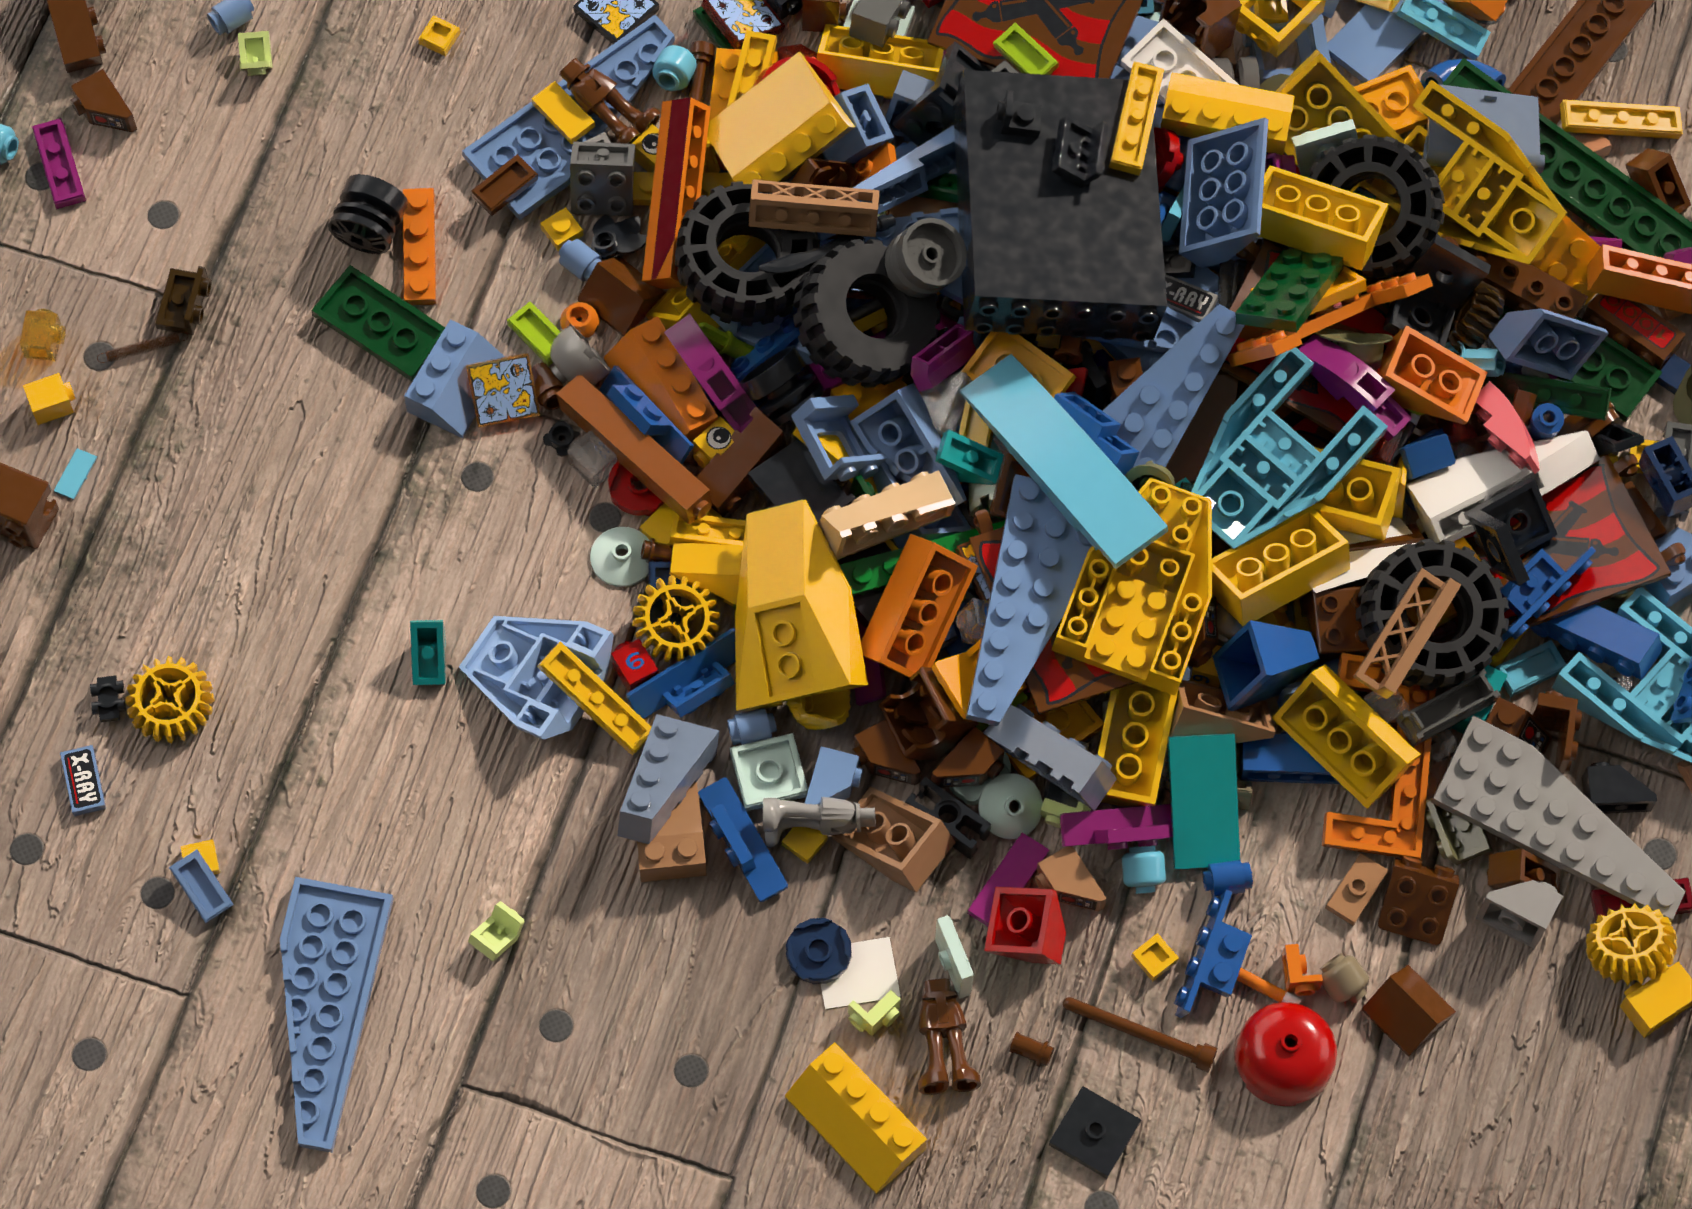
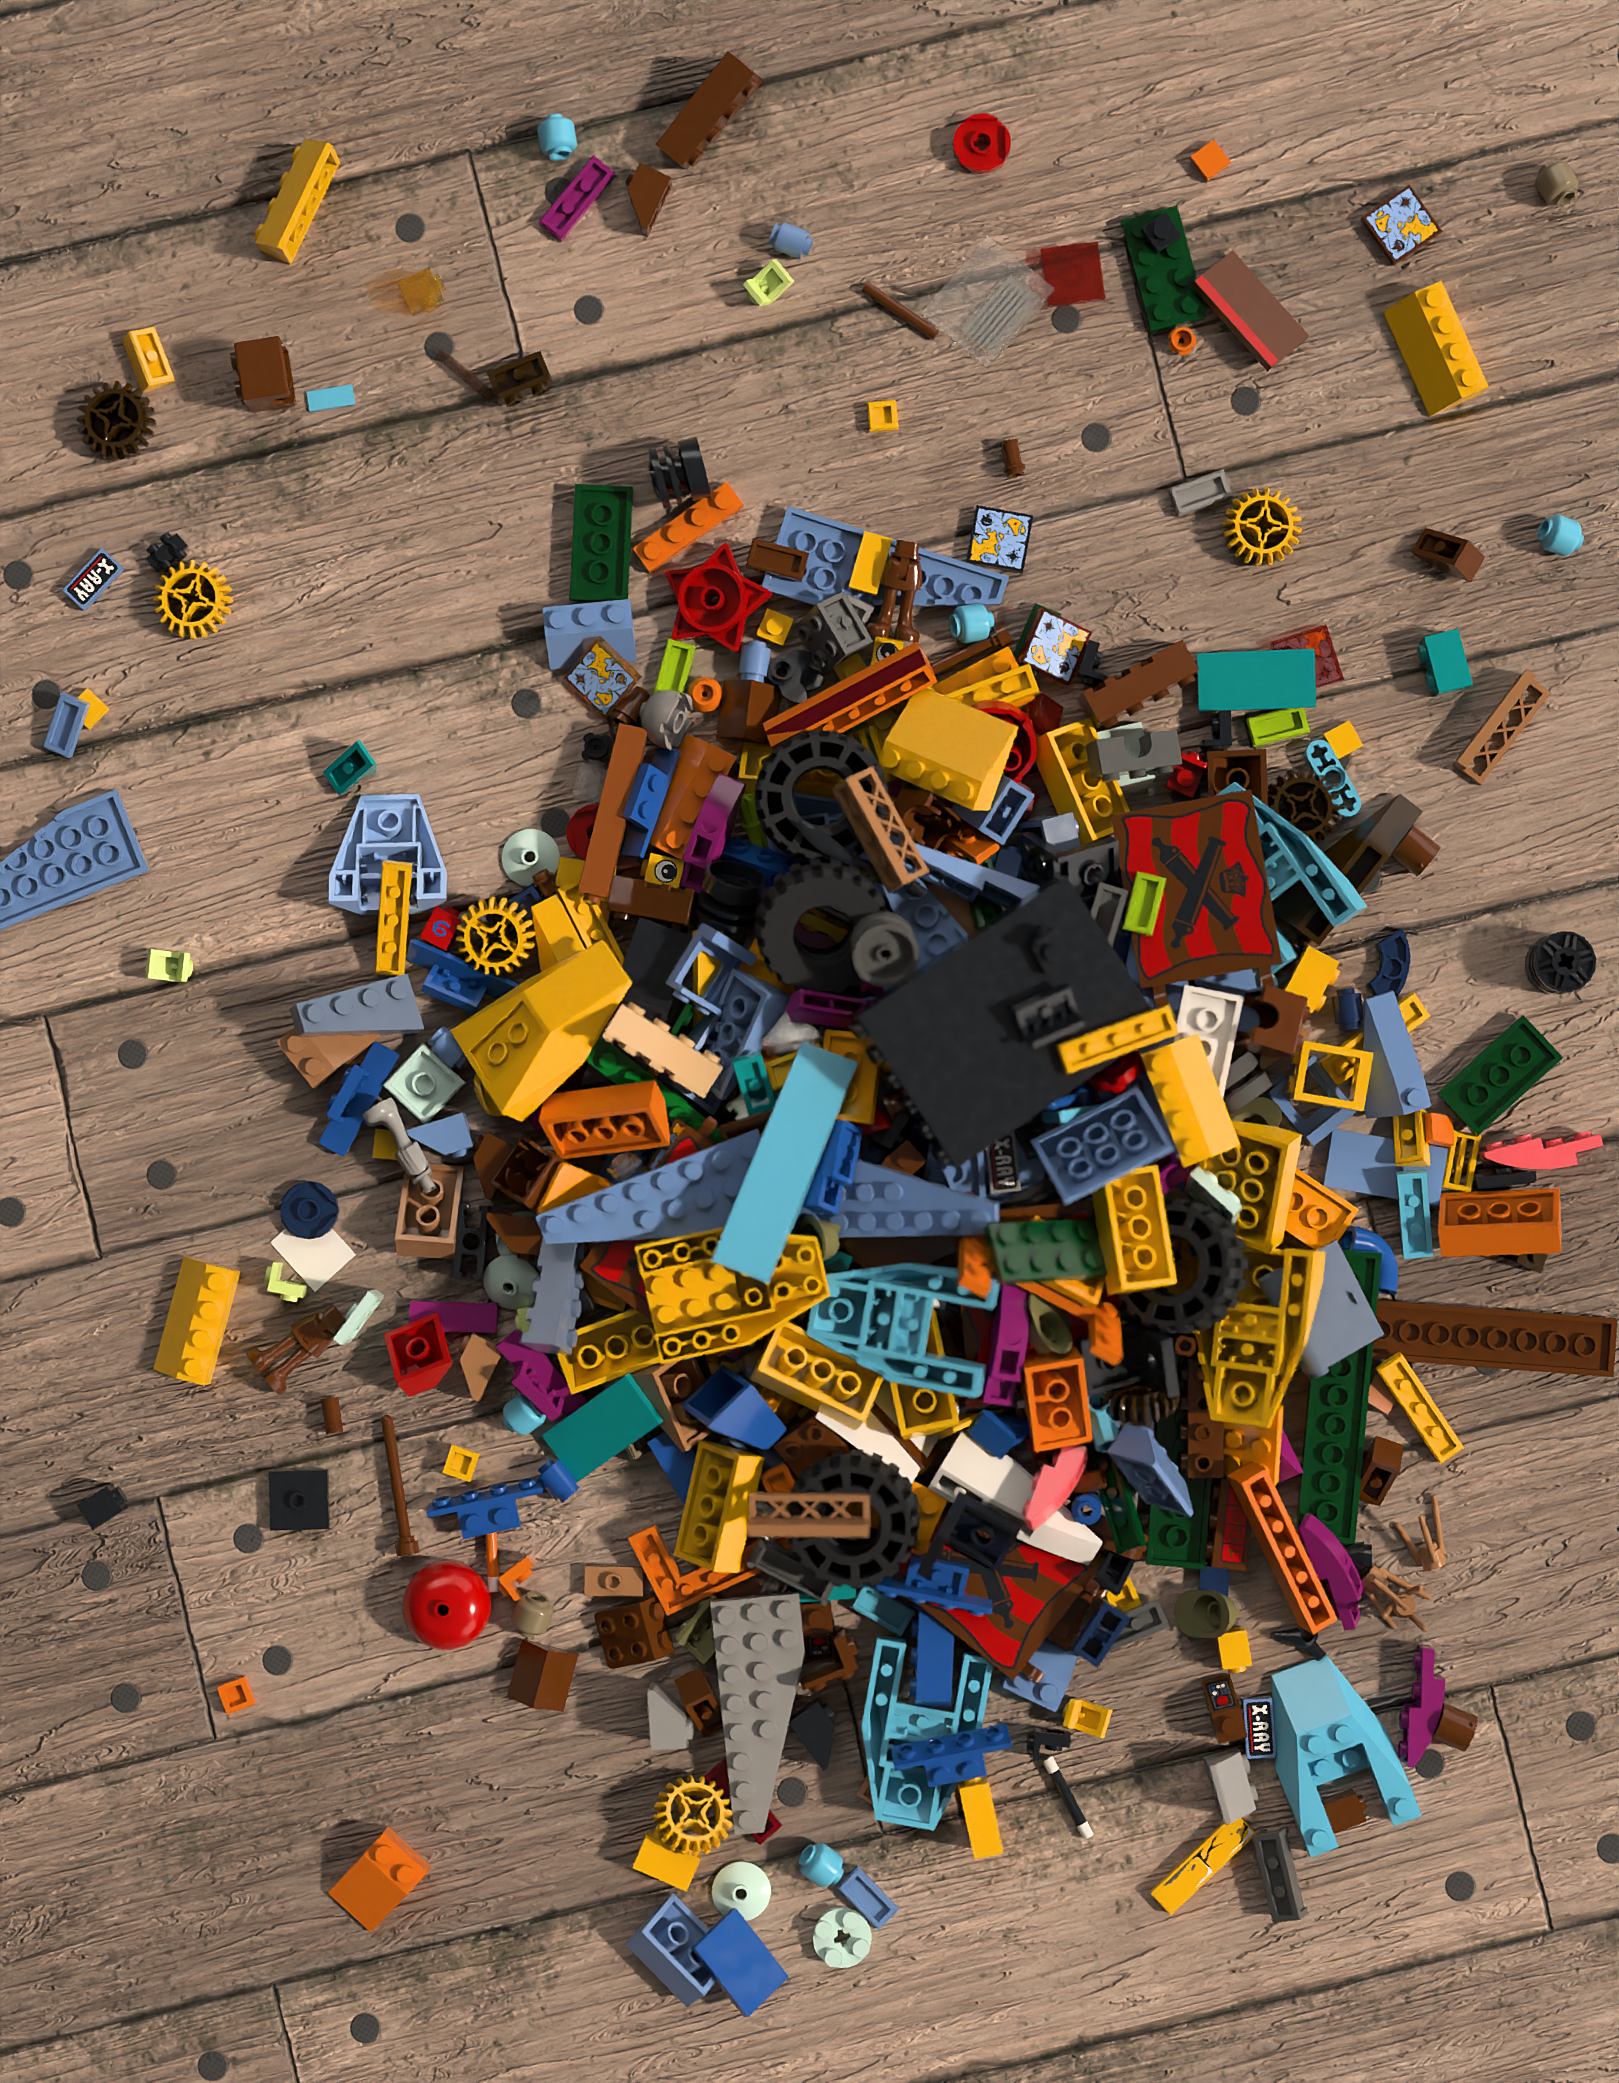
camera: 60 degrees right, 20 degrees up
(49, 398) = (373, 336): yellow brick -> none
(489, 241) = (698, 587): none -> red plate

